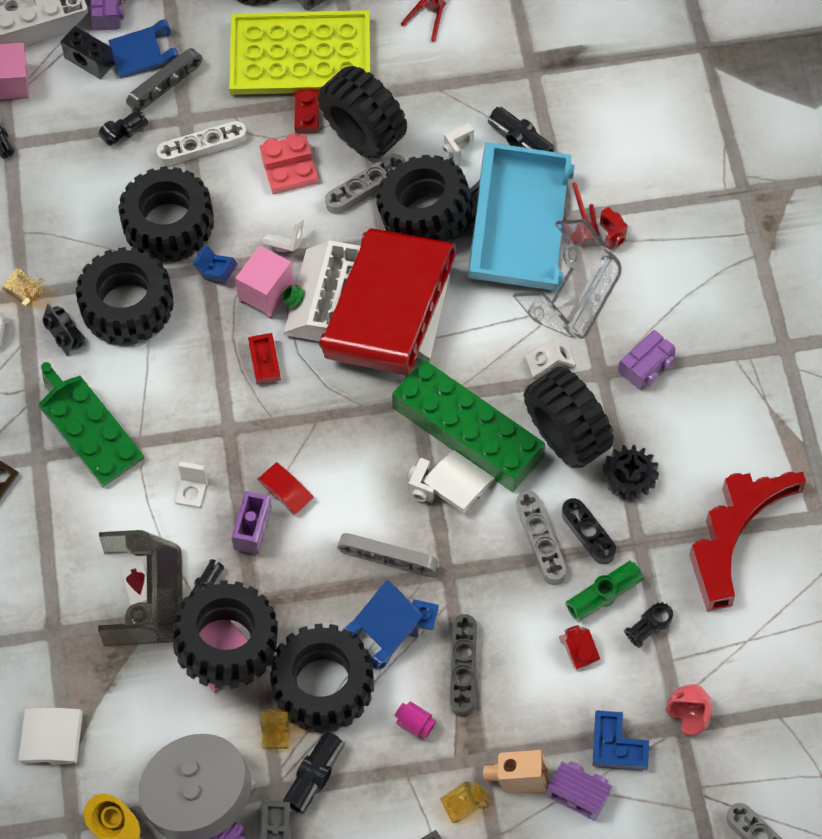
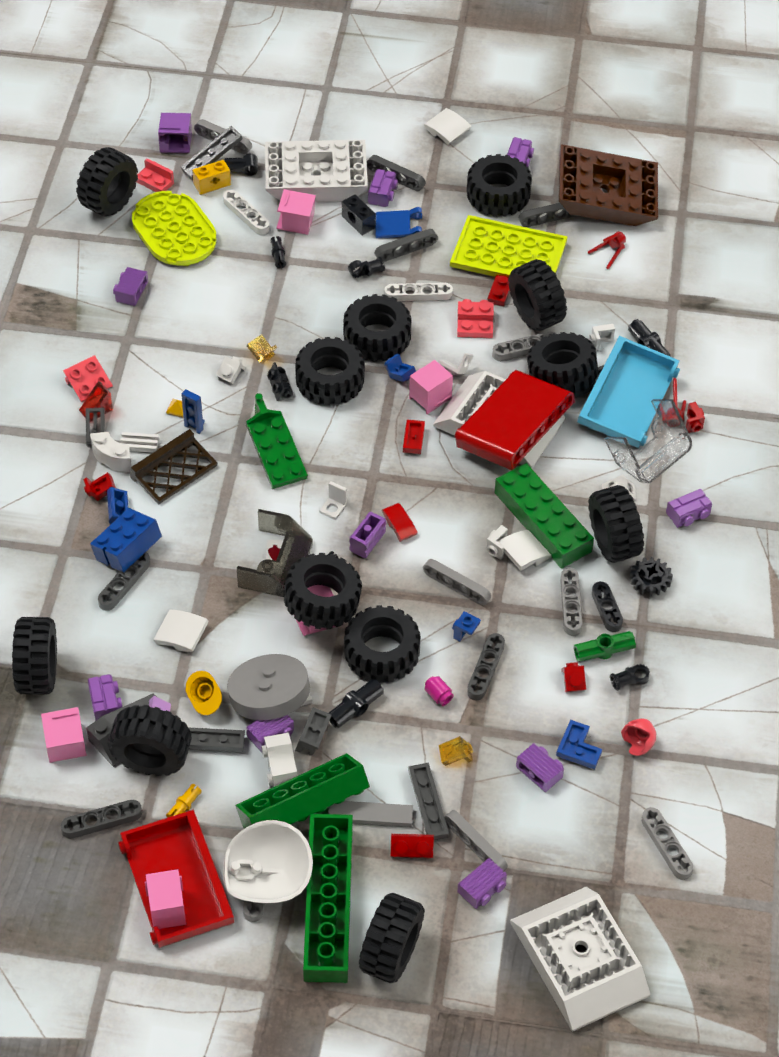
camera: 15 degrees right, 10 degrees down
(275, 729) = (337, 667): clear yellow bracket -> none
(292, 296) = (447, 401): green plate -> none
(387, 620) = (440, 621): blue flag -> none
(519, 772) = (501, 742): light nougat torso -> none
(744, 500) = (710, 628): red arch -> none

